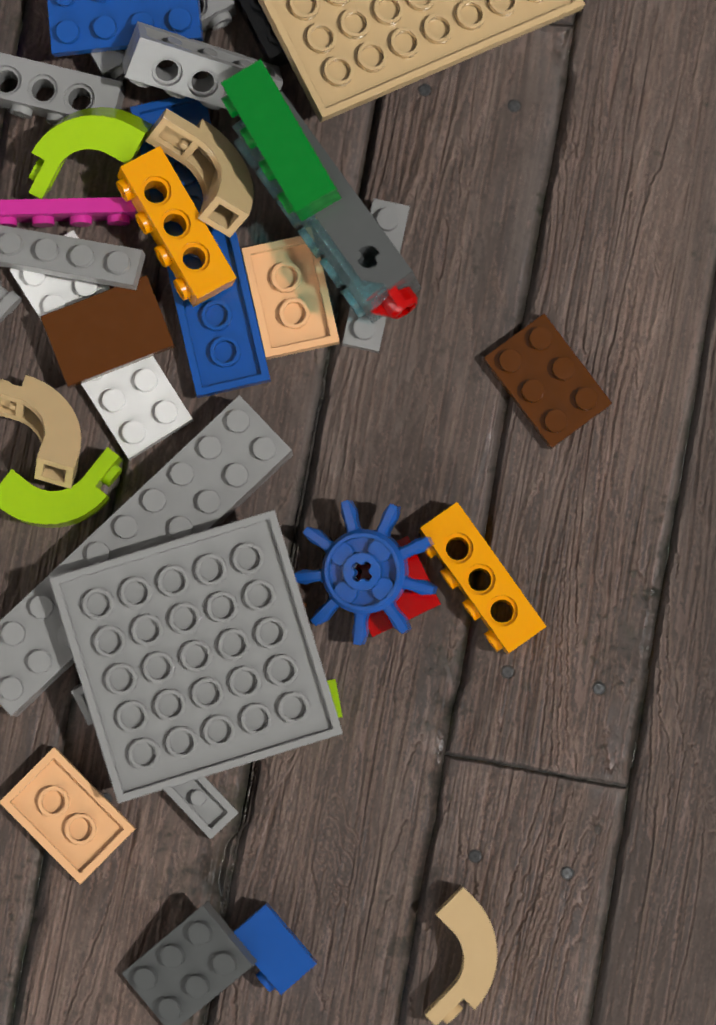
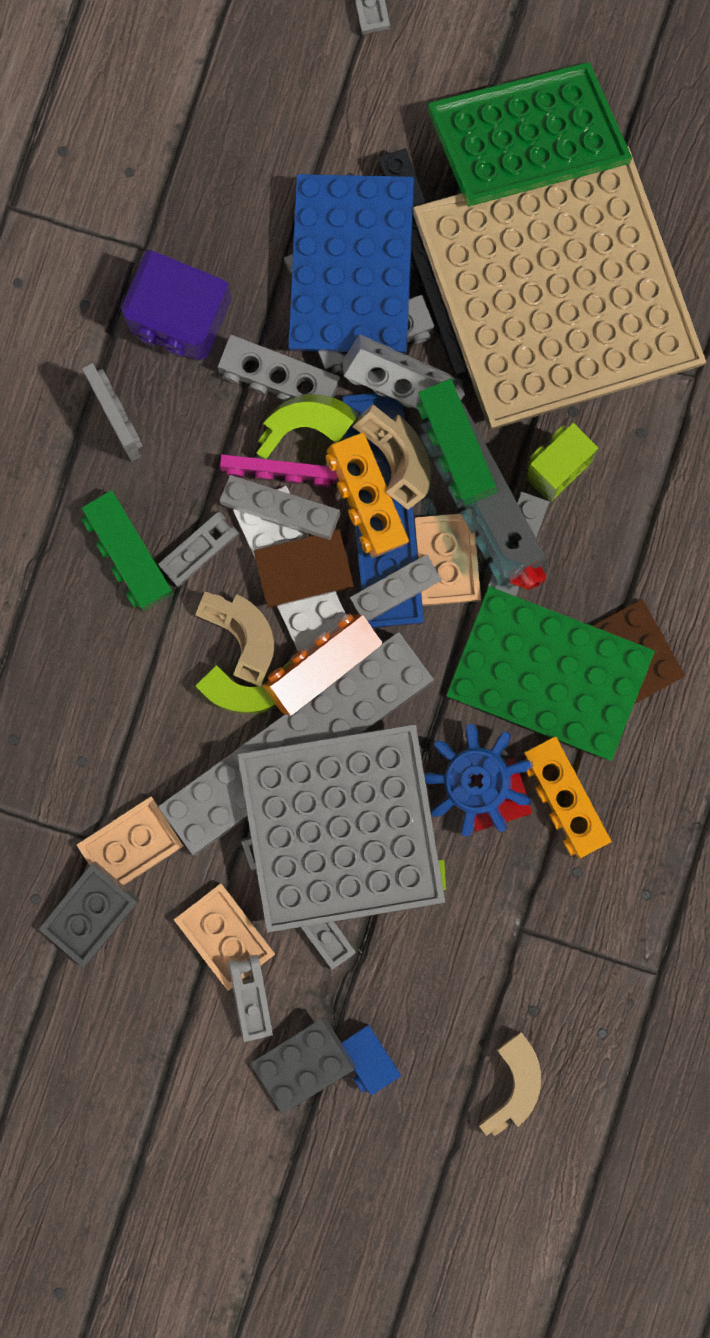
camera: 10 degrees right, 0 degrees up
(110, 891) = (250, 999): none -> light grey plate
(146, 449) = (322, 664): none -> brick
(228, 341) = (396, 588): none -> light grey plate
(417, 150) = (561, 462): none -> lime brick
(440, 422) = (550, 673): none -> green plate

